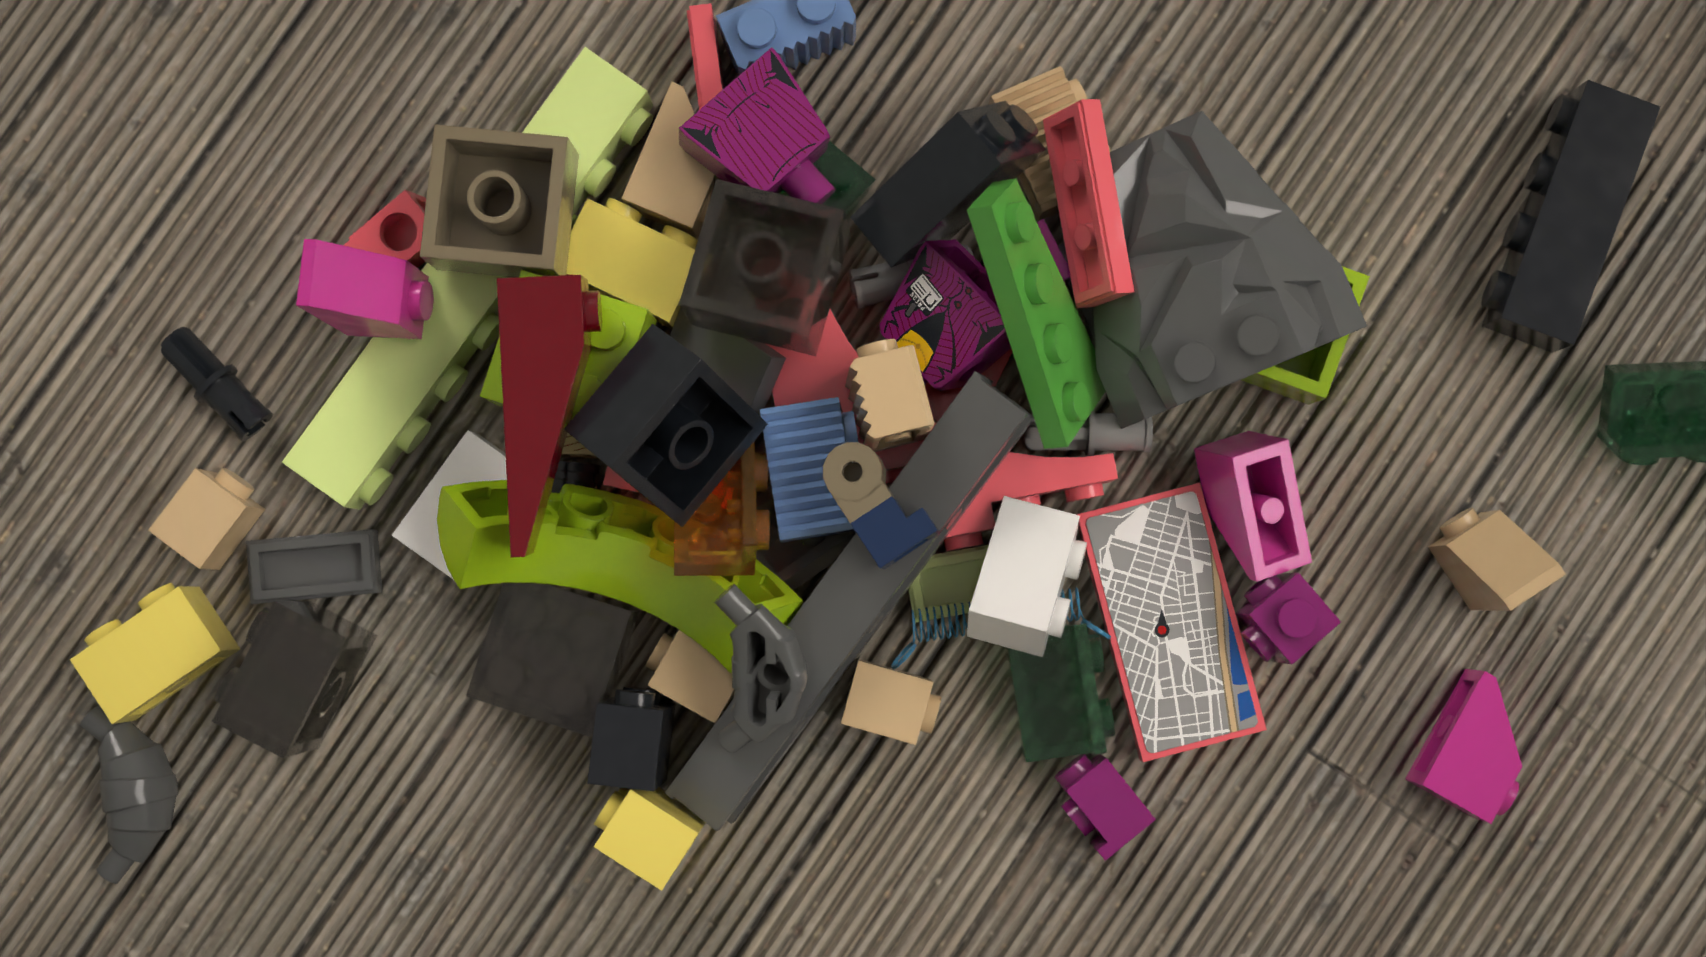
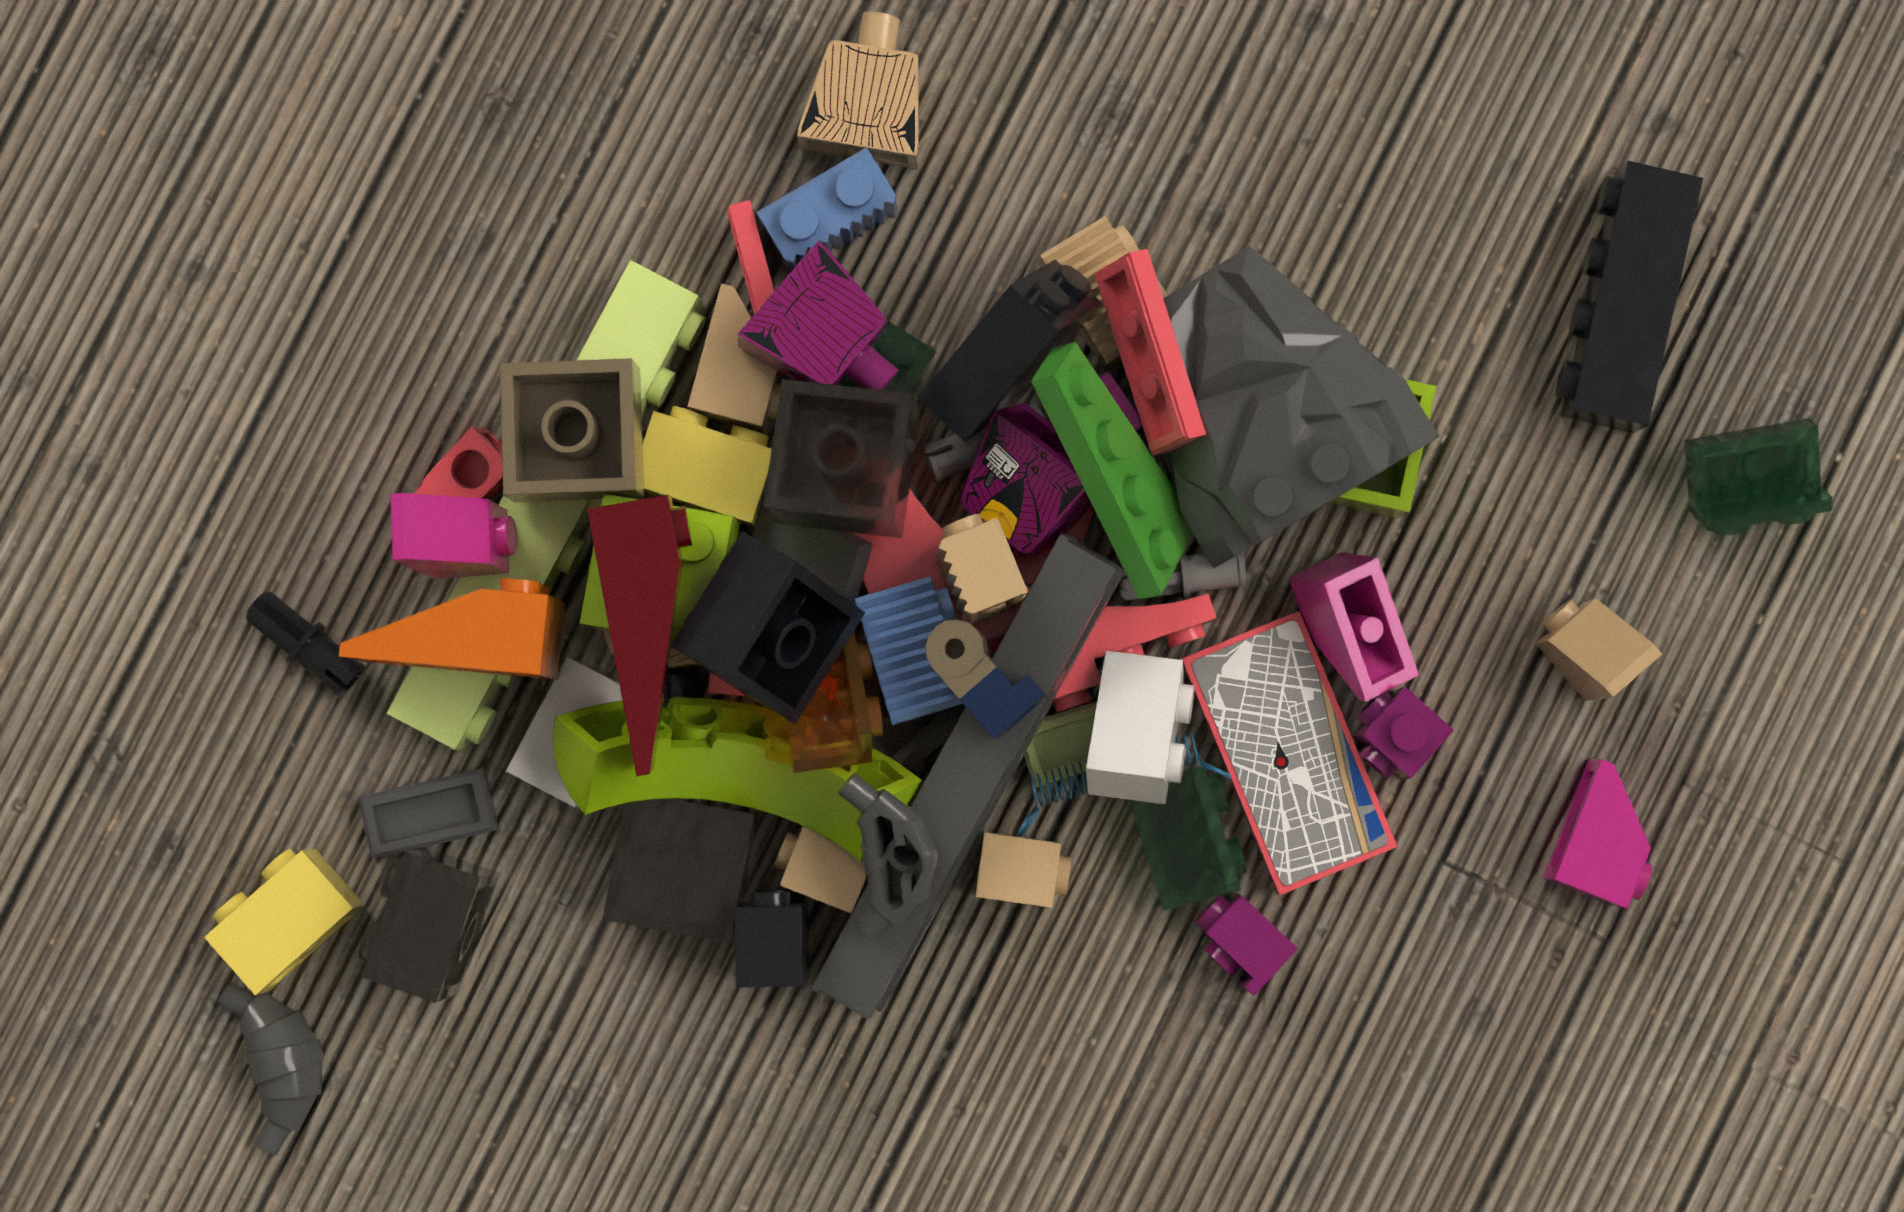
camera: 10 degrees left, 0 degrees up
(208, 517) = (318, 778): tan brick -> none
(377, 390) = (480, 632): none -> orange slope
(647, 832) = (800, 1028): light yellow brick -> none

